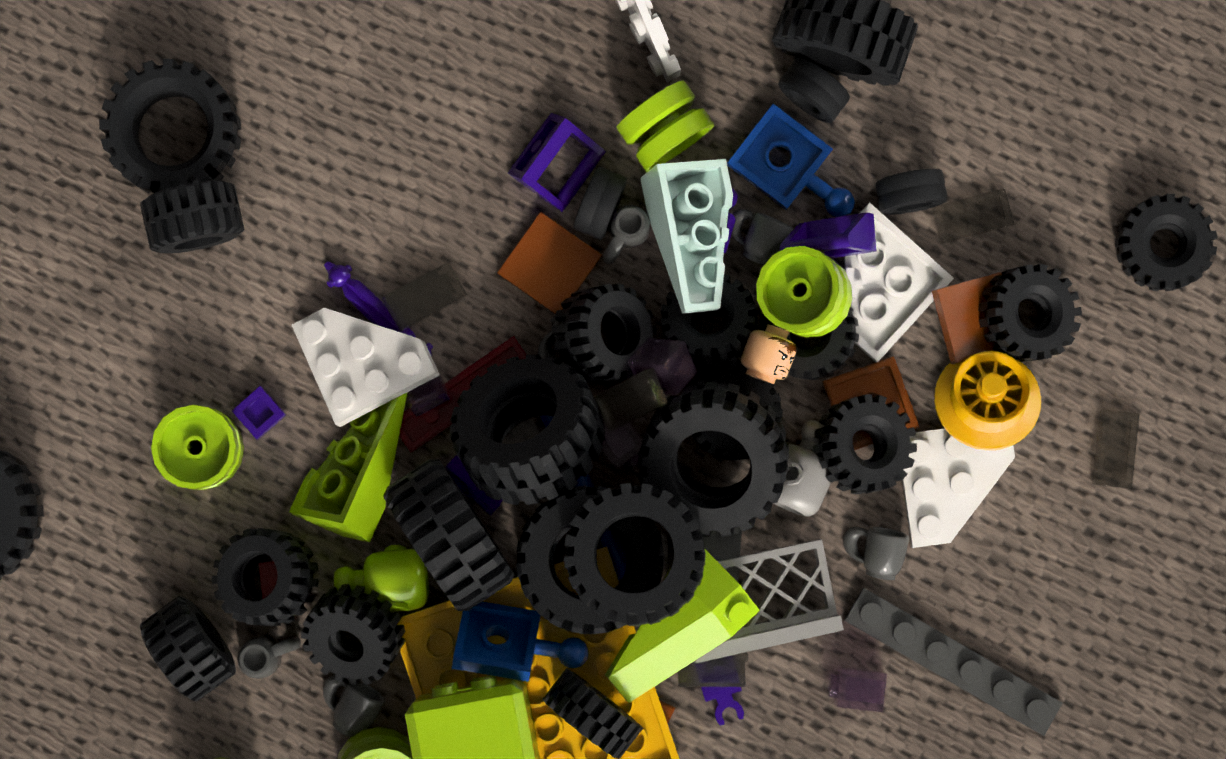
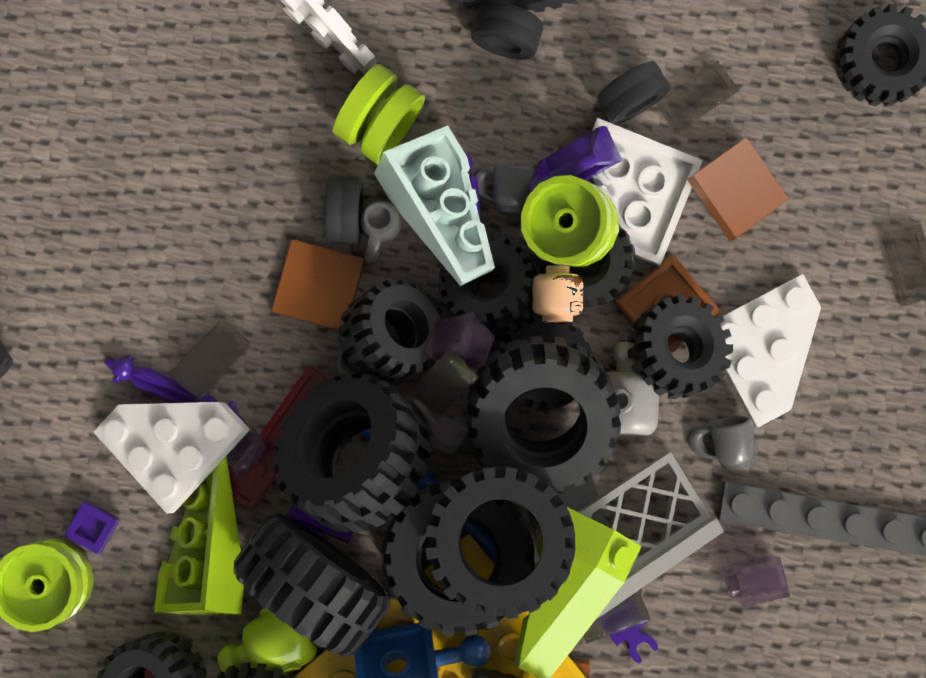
camera: 25 degrees left, 0 degrees up
(542, 151) = (271, 183): dark purple tile -> none
(786, 182) = (512, 128): blue plate -> none
(988, 400) = (777, 263): yellow piece -> none
(1054, 310) = (806, 154): black tyre -> none

